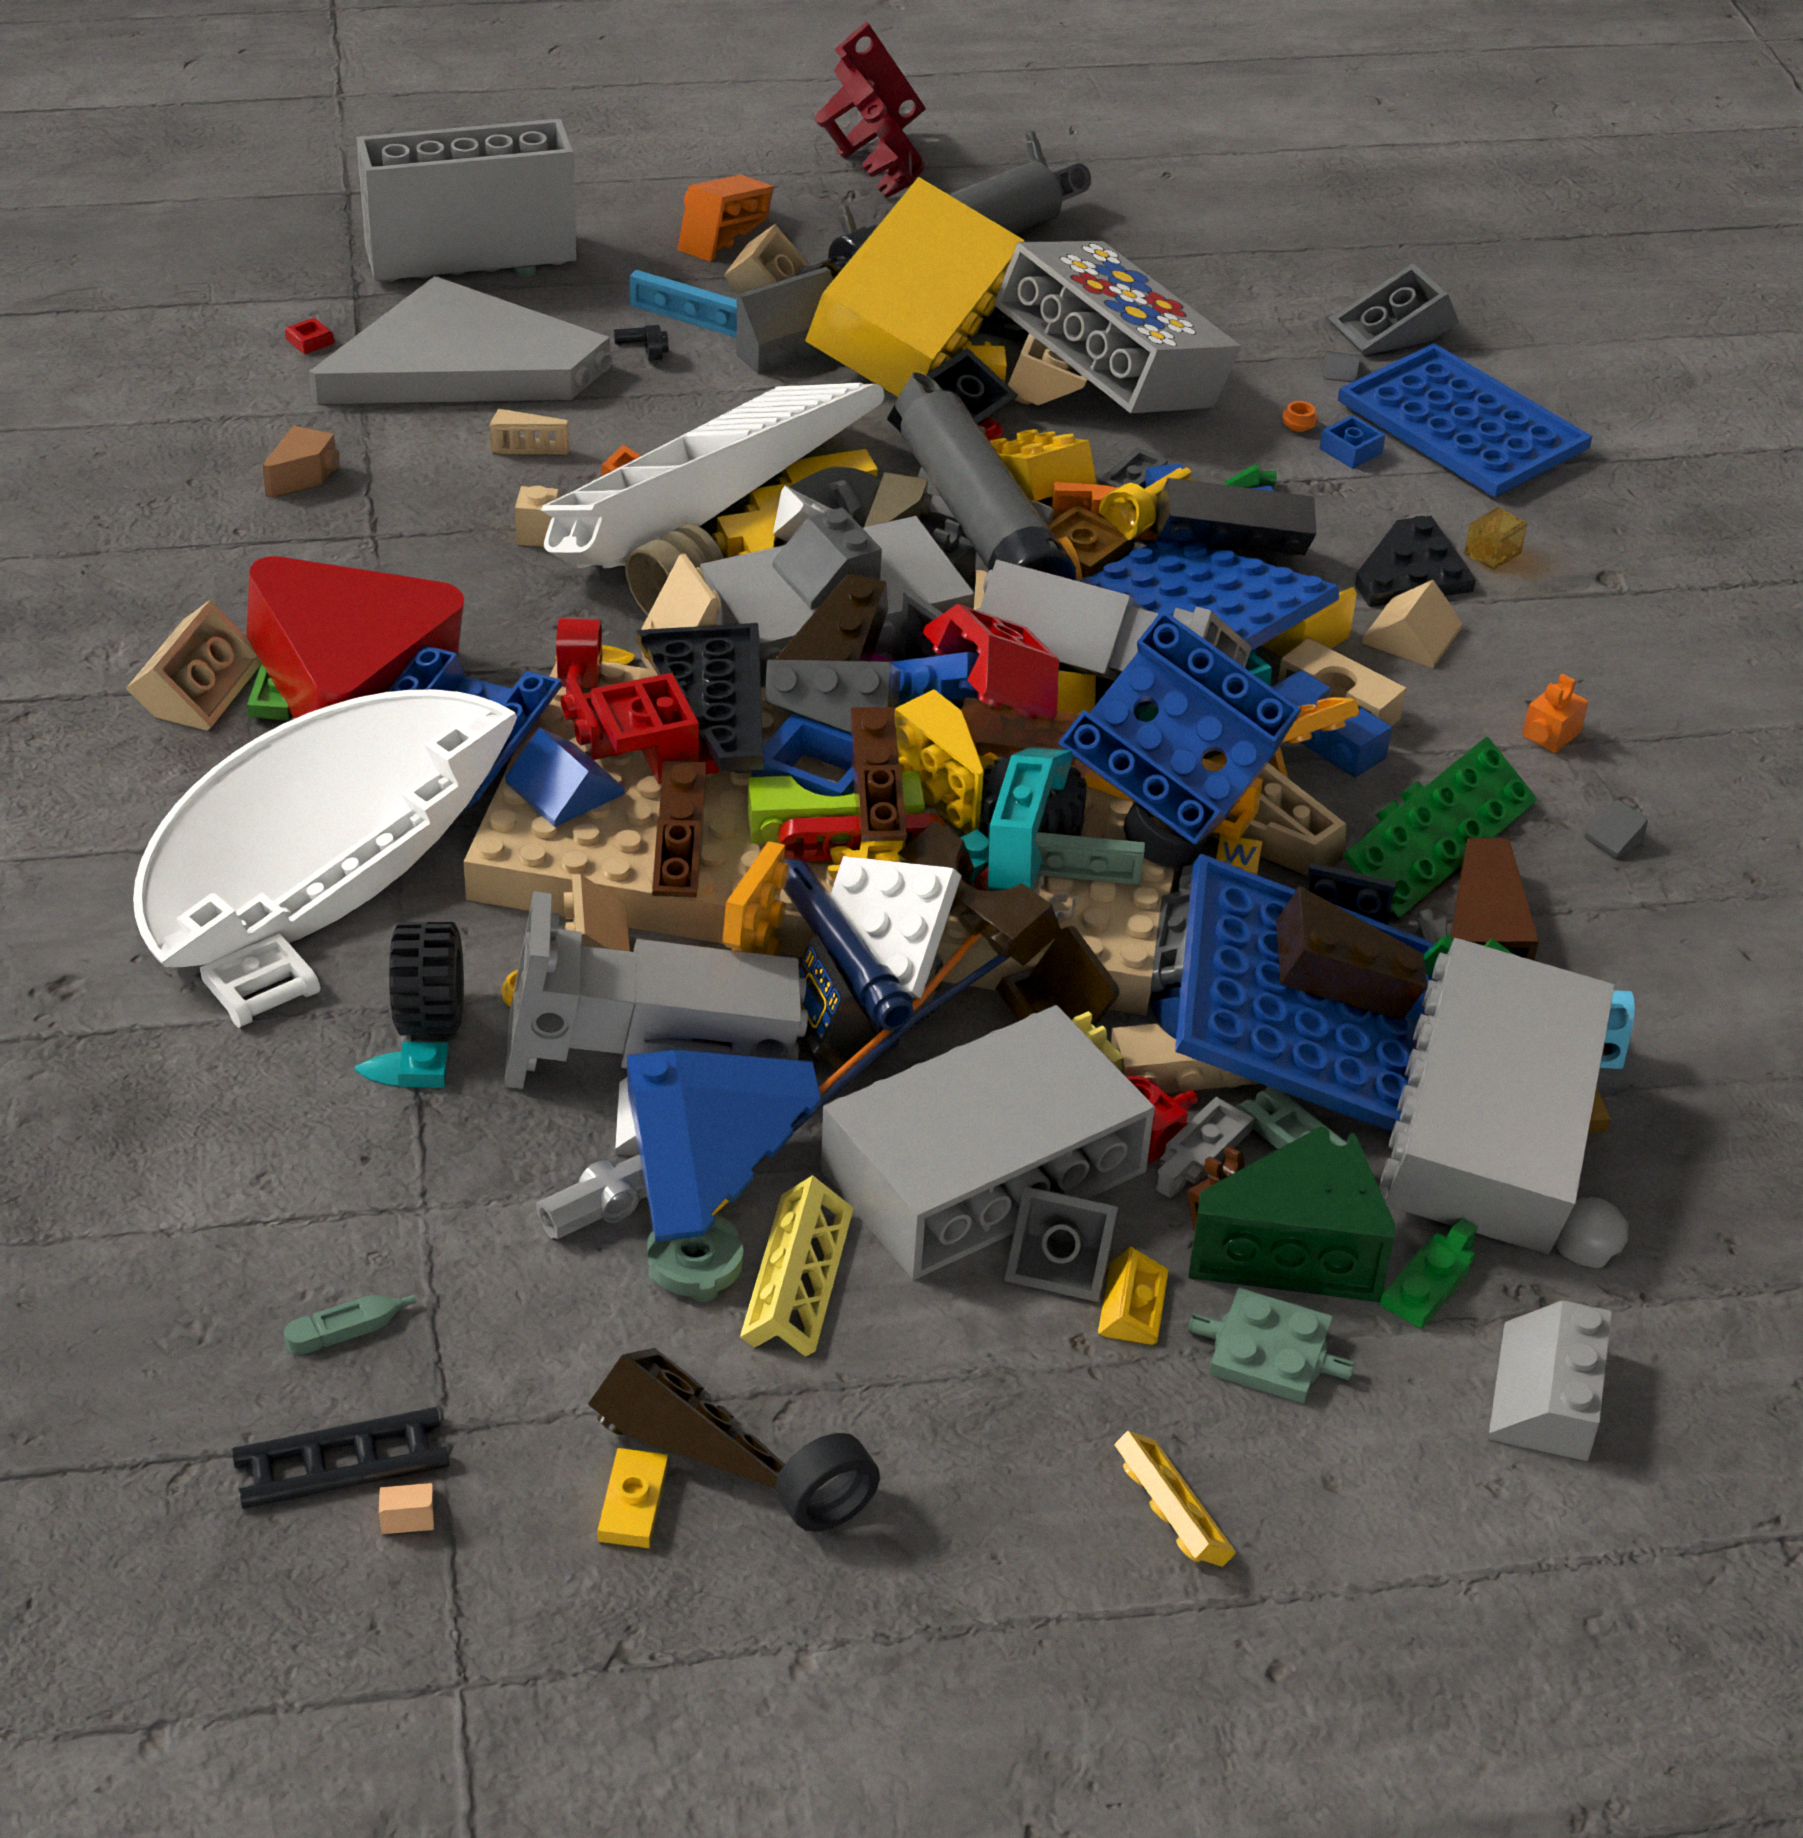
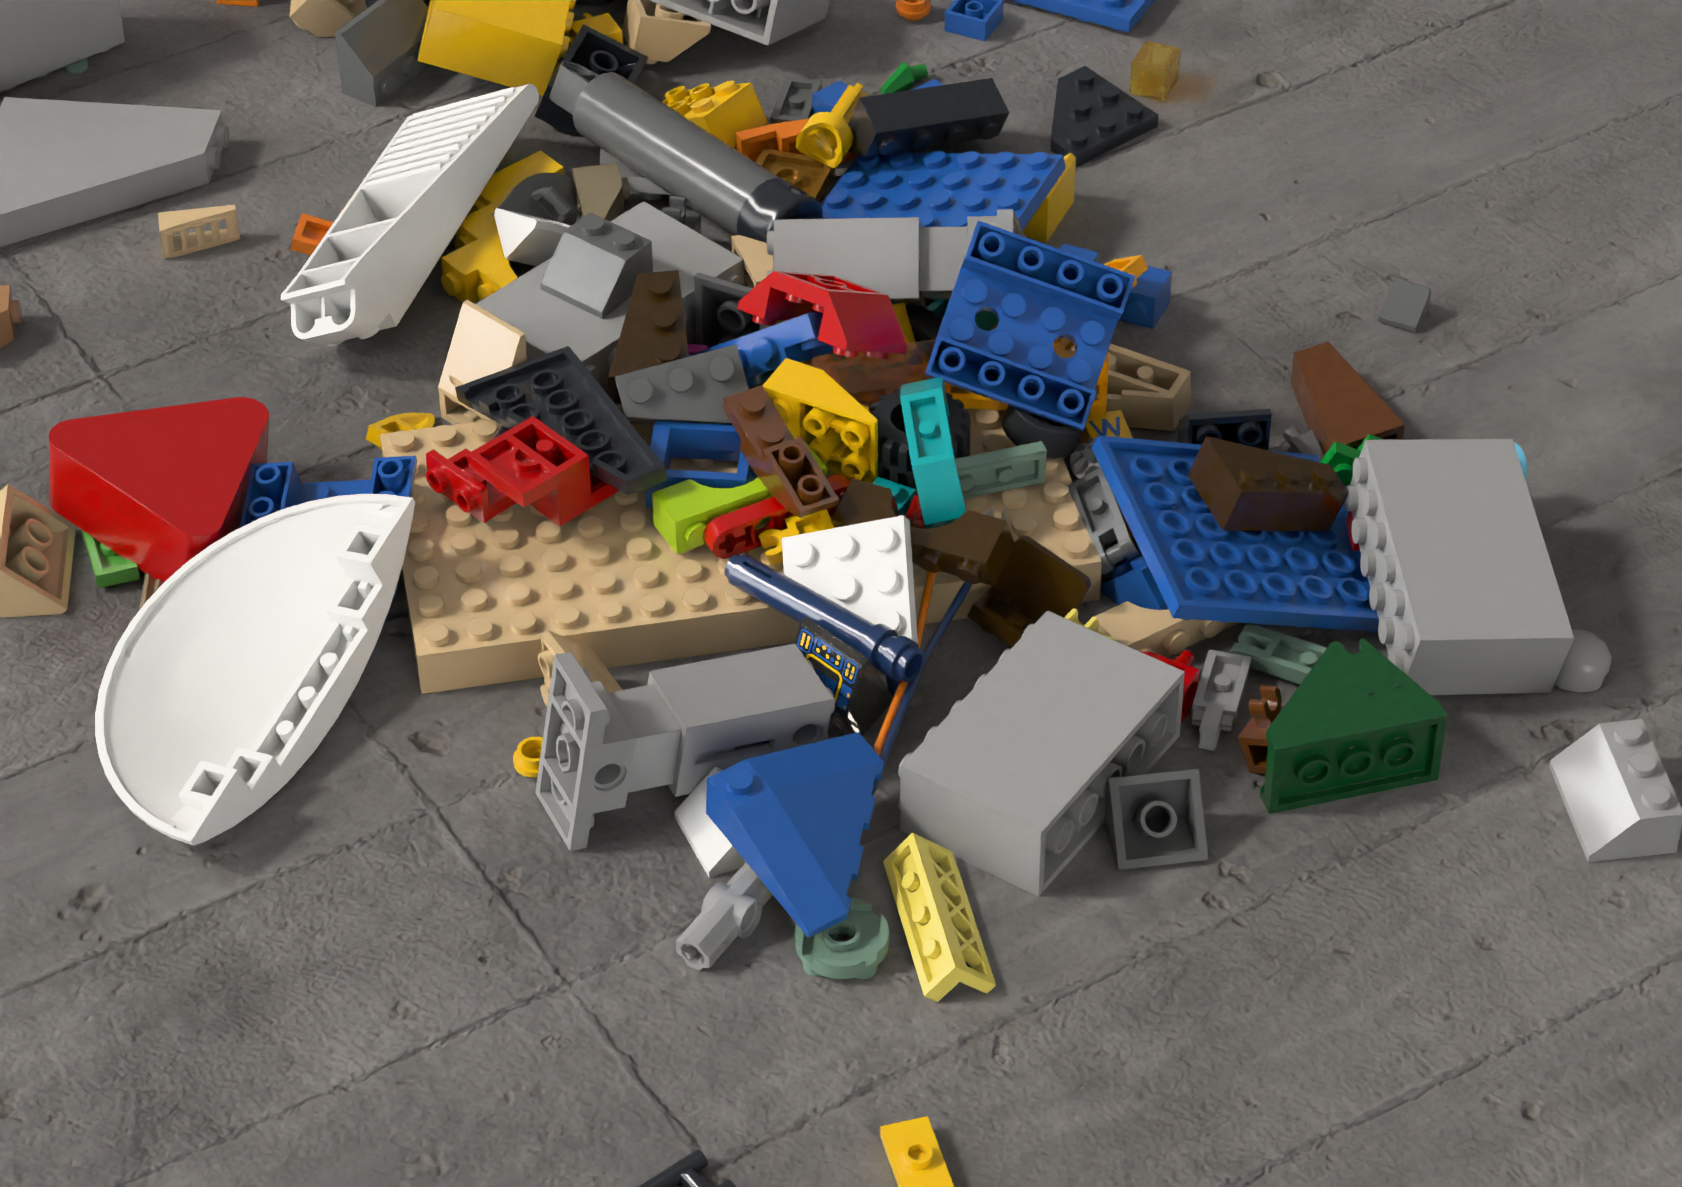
camera: 20 degrees left, 0 degrees up
(255, 969) = (270, 820): white plate -> none
(342, 1322) = (561, 1108): sand green piece -> none
(414, 1066) = (473, 861): teal plate -> none
(426, 978) = (455, 773): black tyre -> none
(530, 520) = (261, 308): tan brick -> none
(560, 779) = (466, 551): blue slope -> none
(579, 651) = (413, 423): red piece -> none
(652, 563) = (426, 320): dark tan wheel -> none
(654, 340) = (259, 100): black plate -> none
(662, 1406) = (898, 1080): dark brown wedge -> none
(679, 829) = (613, 563): reddish brown slope -> none
(683, 302) = (270, 55): dark azure fence -> none
(755, 905) = (735, 602): light orange plate -> none
(815, 1465) = (1087, 1087): black tyre -> none
(1133, 1298) = (1236, 847): yellow slope -> none
(1174, 1500) = (1373, 1001): yellow plate -> none
(1271, 1345) = (1374, 846): sand green plate -> none
(1346, 679) = (1107, 238): tan arch -> none
(1416, 625) = (1128, 172): tan slope -> none
(1429, 831) = (1253, 346): green bracket -> none
(1431, 1275) = (1470, 742): green hinge -> none
(1556, 715) = (1299, 218): orange brick -> none

